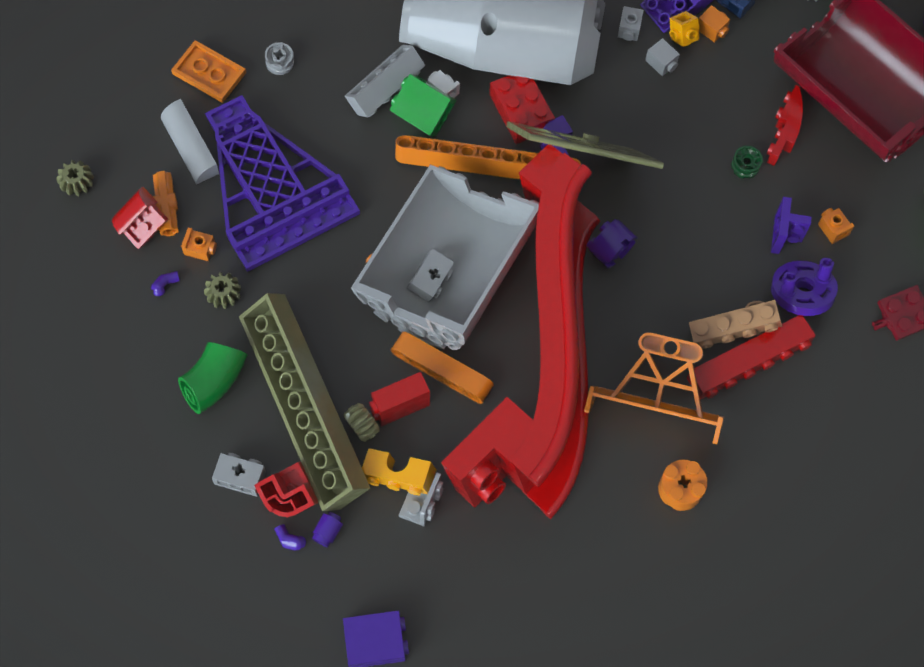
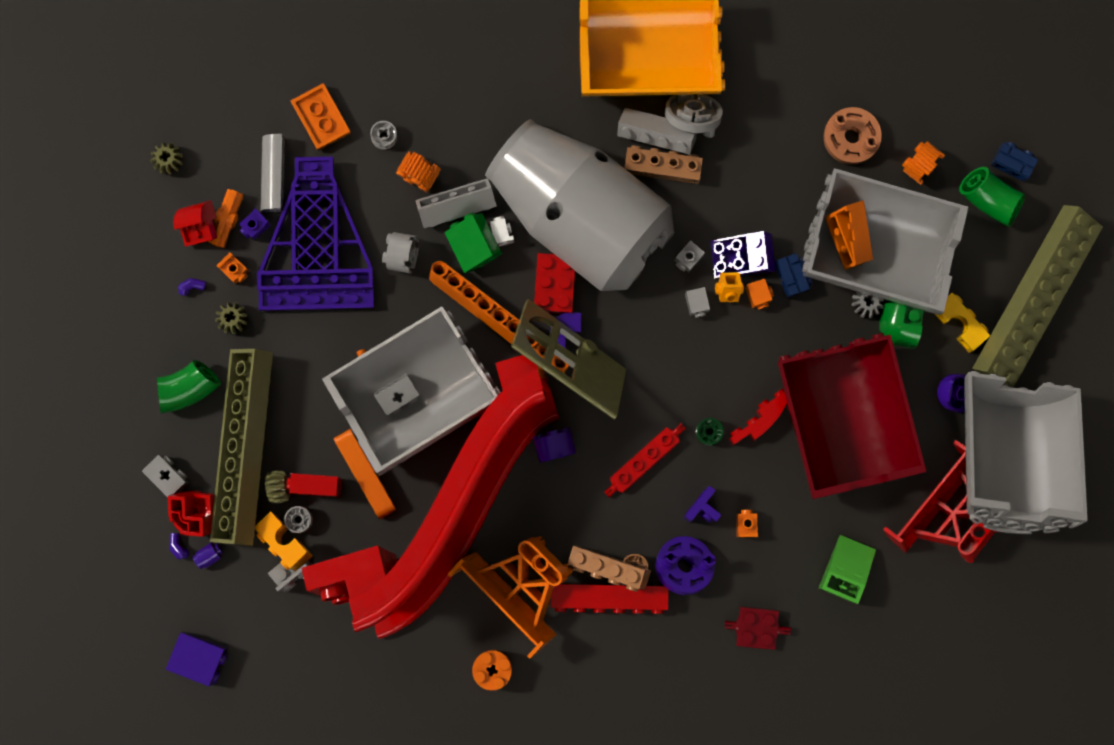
camera: 30 degrees right, 15 degrees up
(204, 192) = (260, 226): none -> dark purple brick
(333, 68) = (418, 171): none -> orange brick
(357, 147) = (401, 252): none -> light grey brick
(406, 438) = (292, 525): none -> light grey wheel
(703, 219) = (644, 460): none -> red plate

